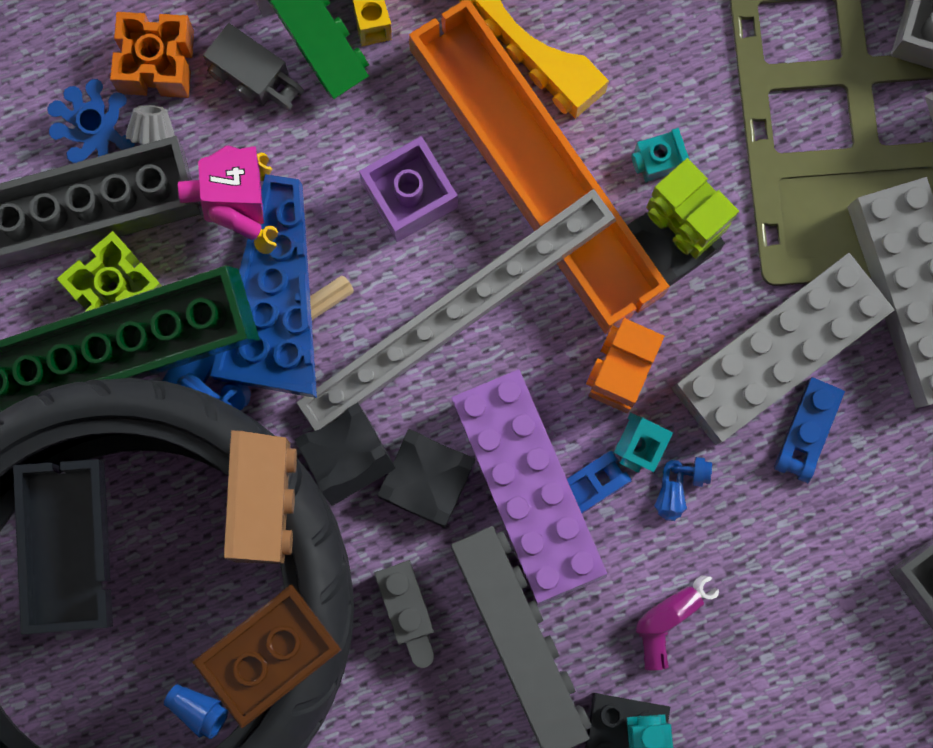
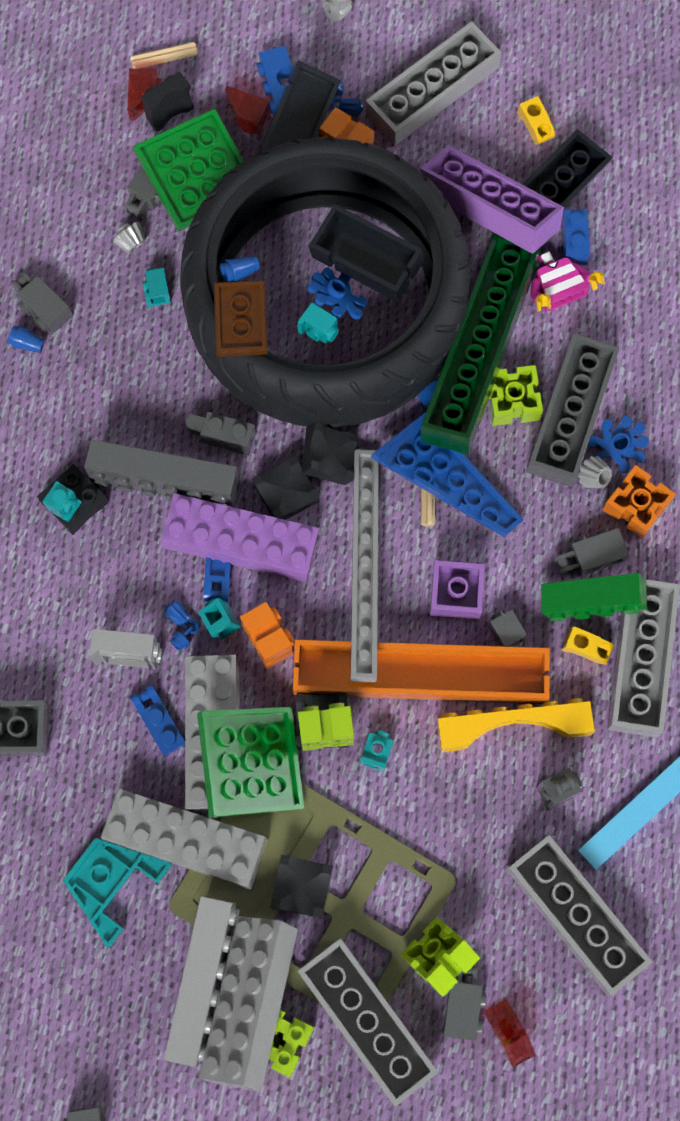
camera: 130 degrees right, 5 degrees down
(148, 550) = (336, 293): none -> blue animal
(206, 540) = (318, 324): none -> teal brick
(232, 193) = (521, 486): dark pink torso -> none
(232, 393) = (419, 402): blue piece -> none
(259, 498) = (320, 358): medium nougat slope -> none
(414, 106) = (507, 629): none -> dark grey brick
(667, 615) = (117, 565): magenta arm -> none
(764, 521) = (125, 649): none -> light grey window
(789, 273) = (250, 761): none -> green plate
(872, 129) = (301, 886): none -> black brick

